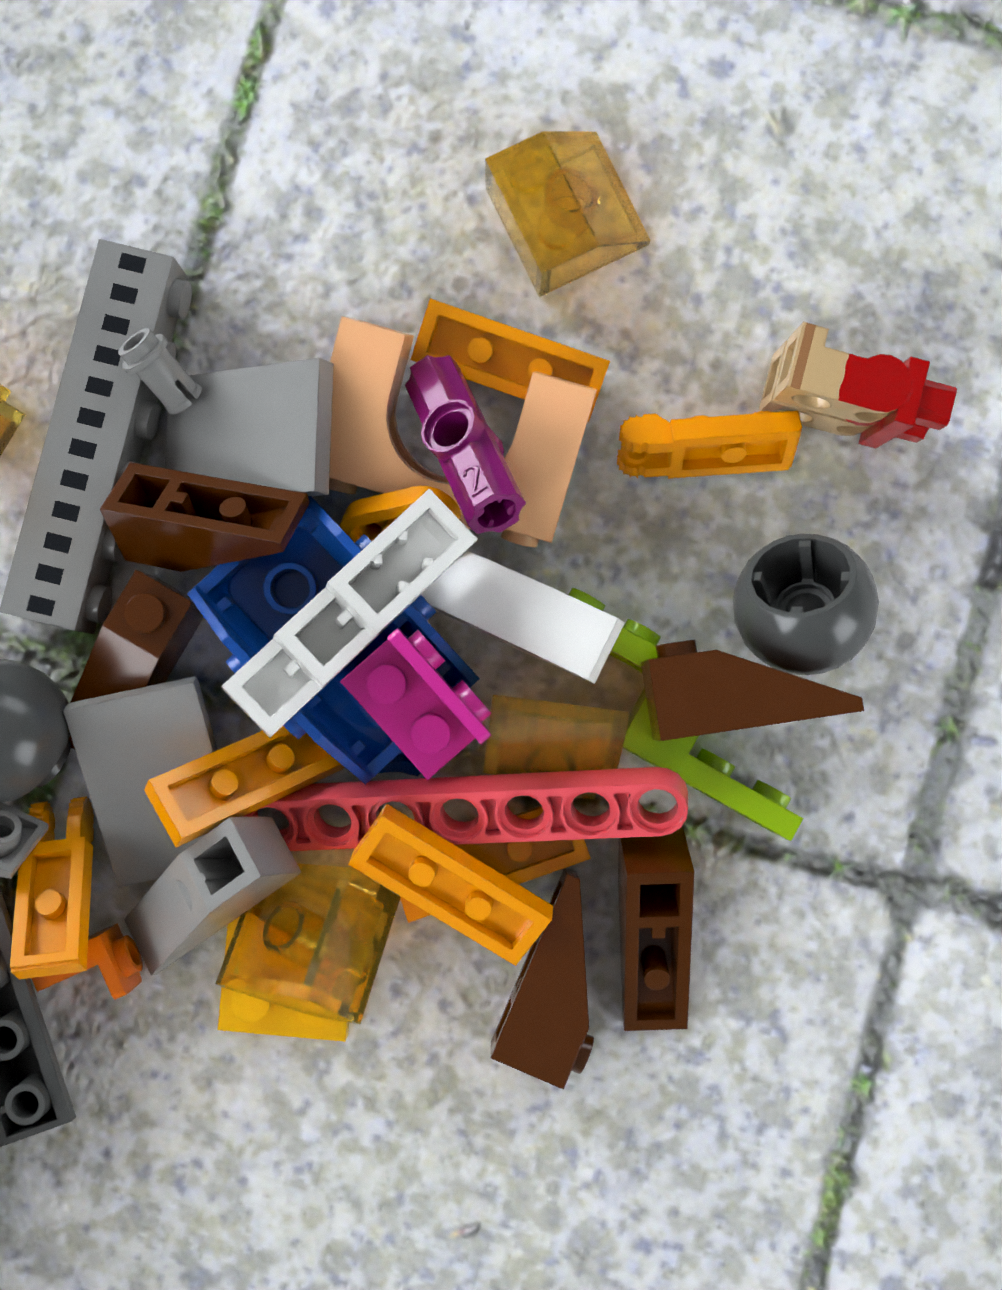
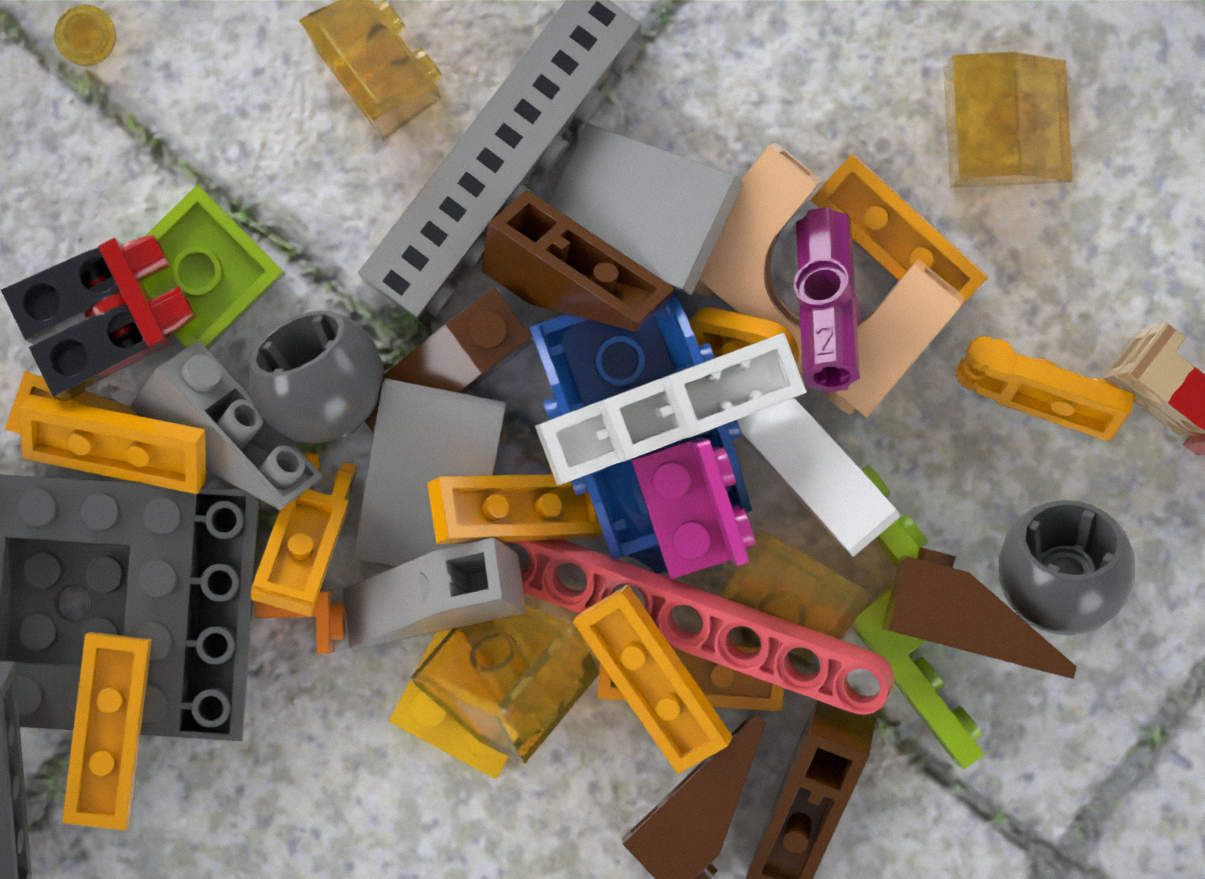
camera: 25 degrees right, 0 degrees up
(158, 369) = (583, 107): light grey pin -> none

